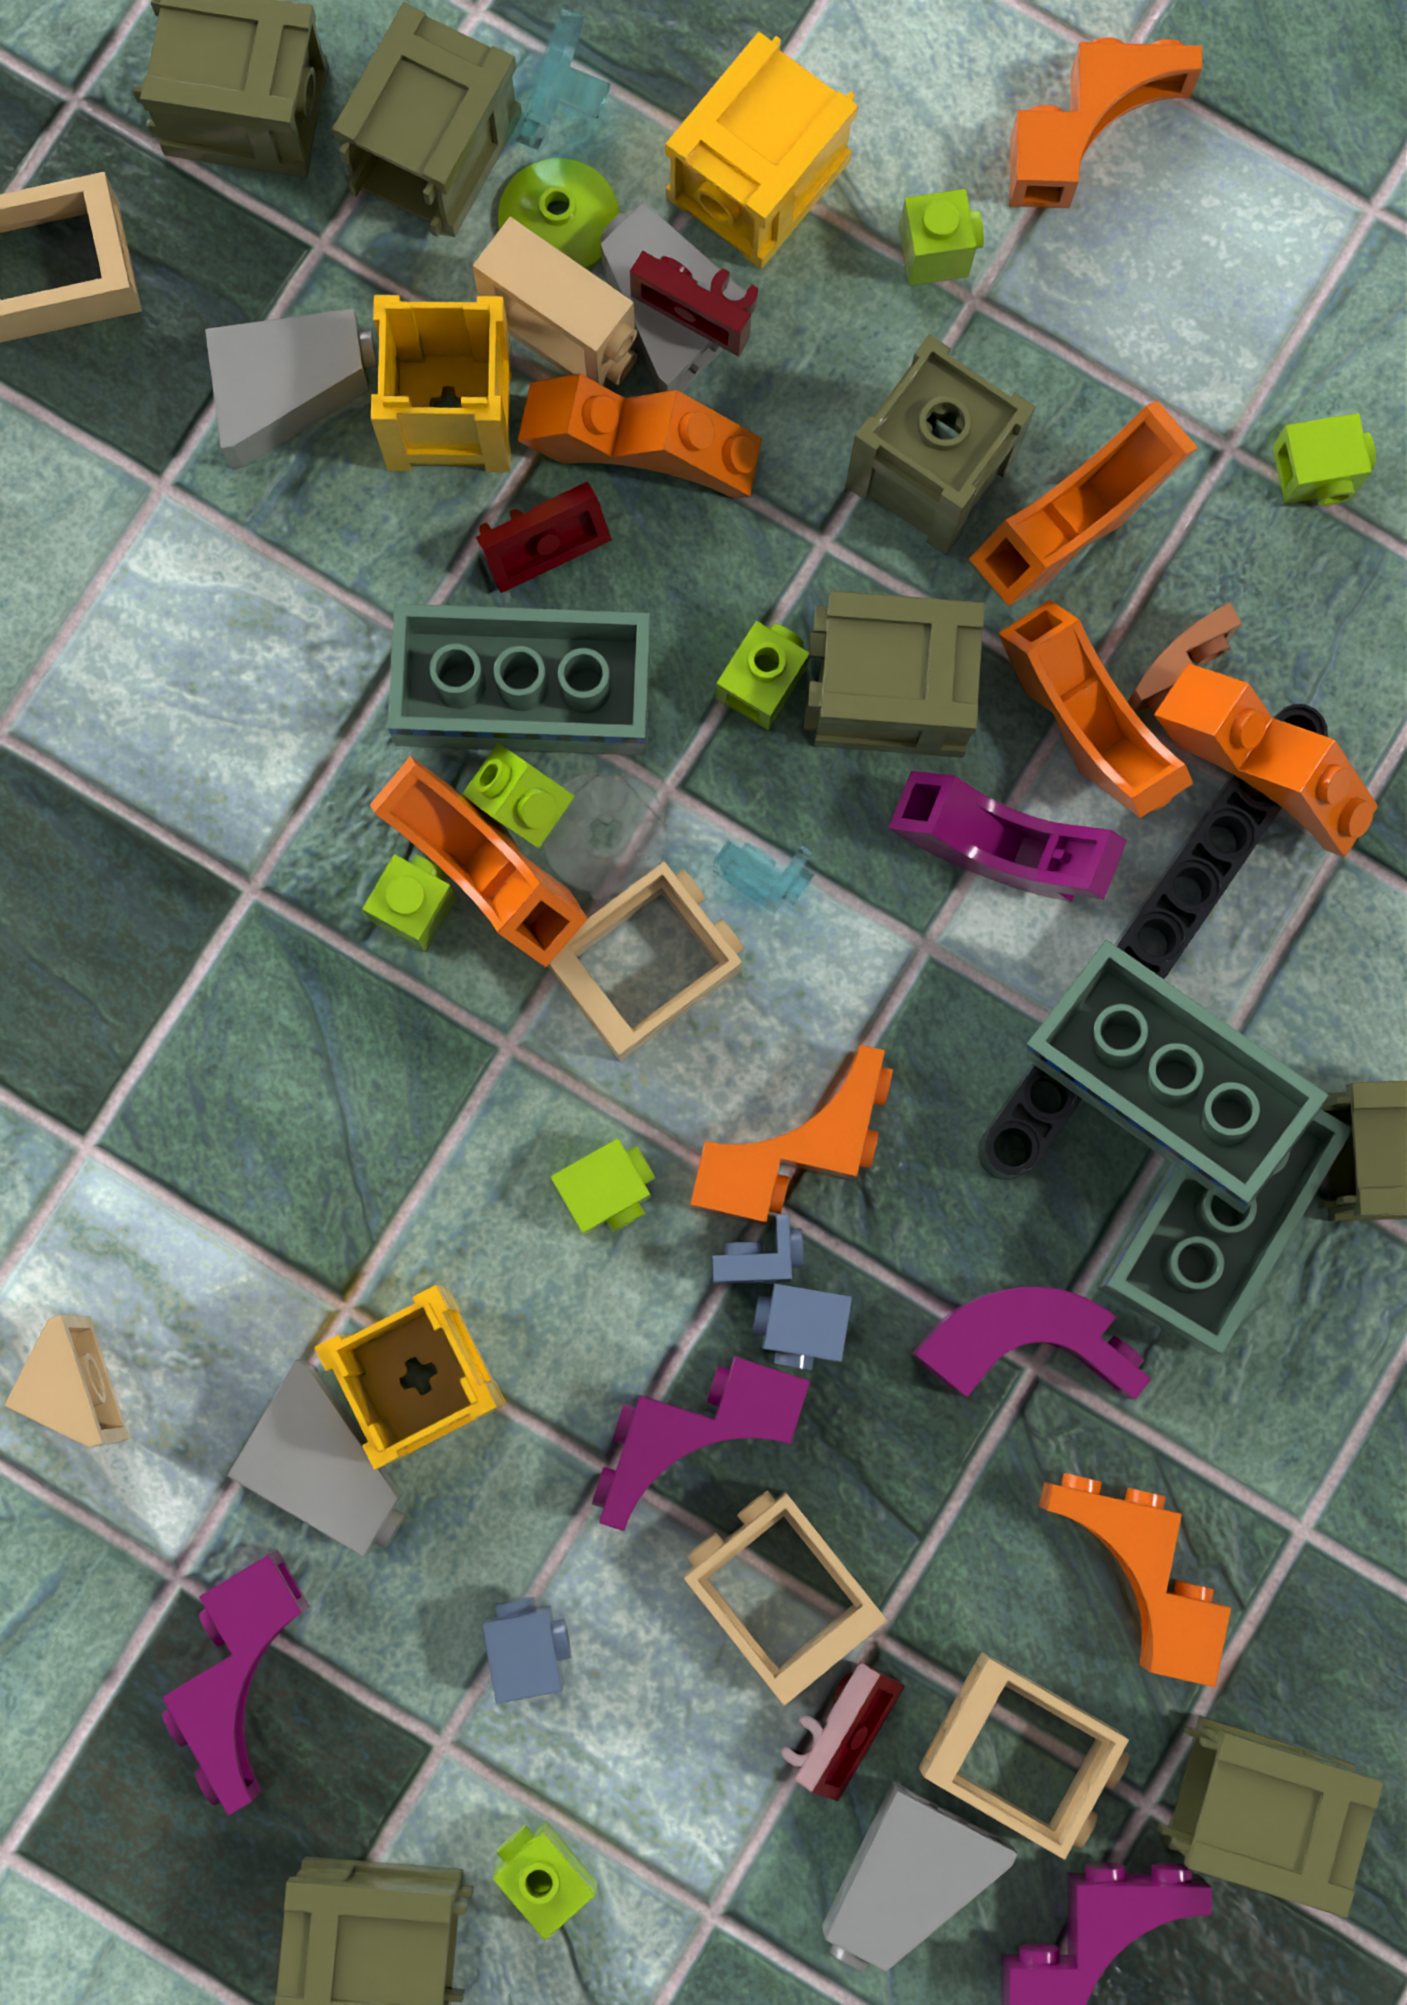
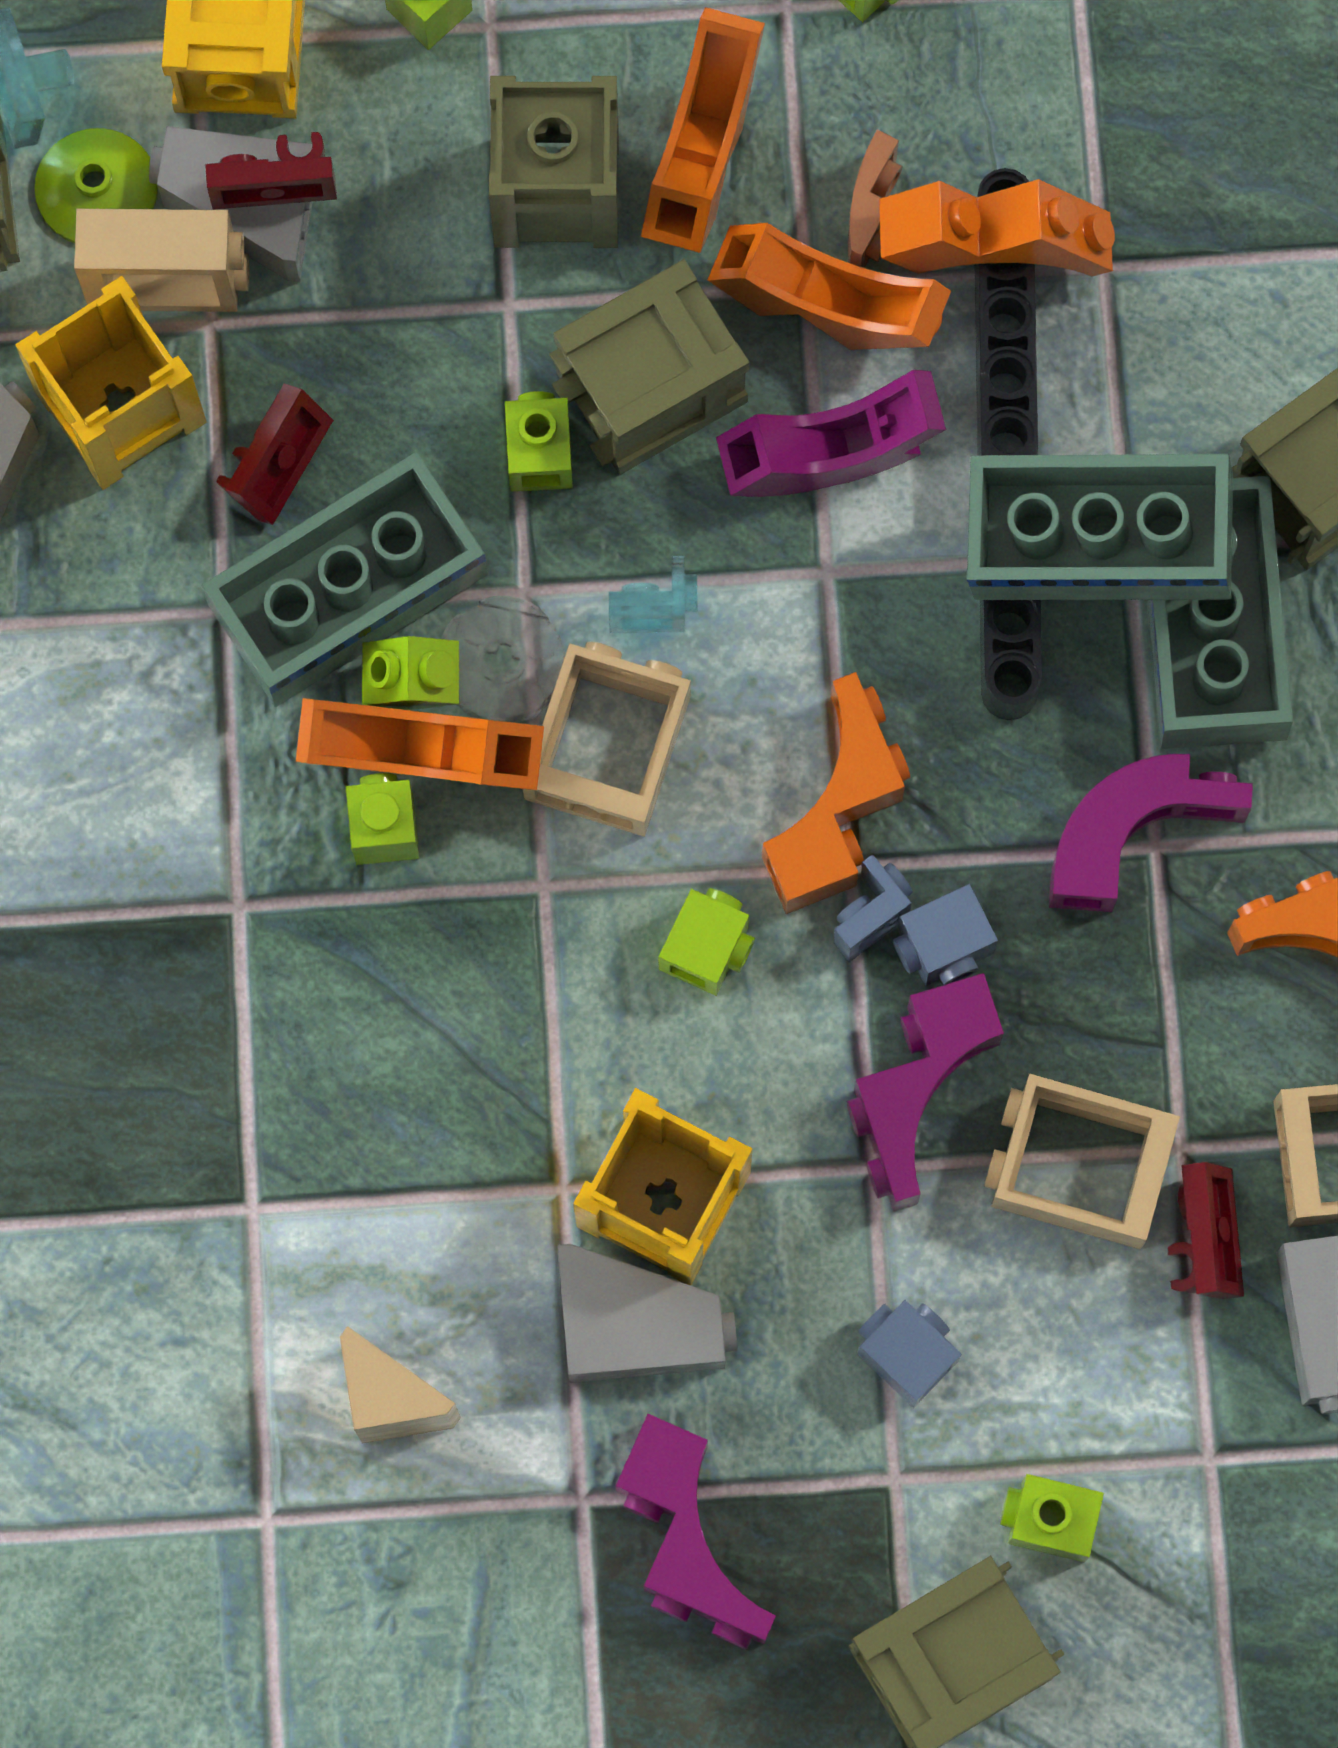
camera: 30 degrees left, 5 degrees down
(659, 432) = (316, 303): orange arch -> none

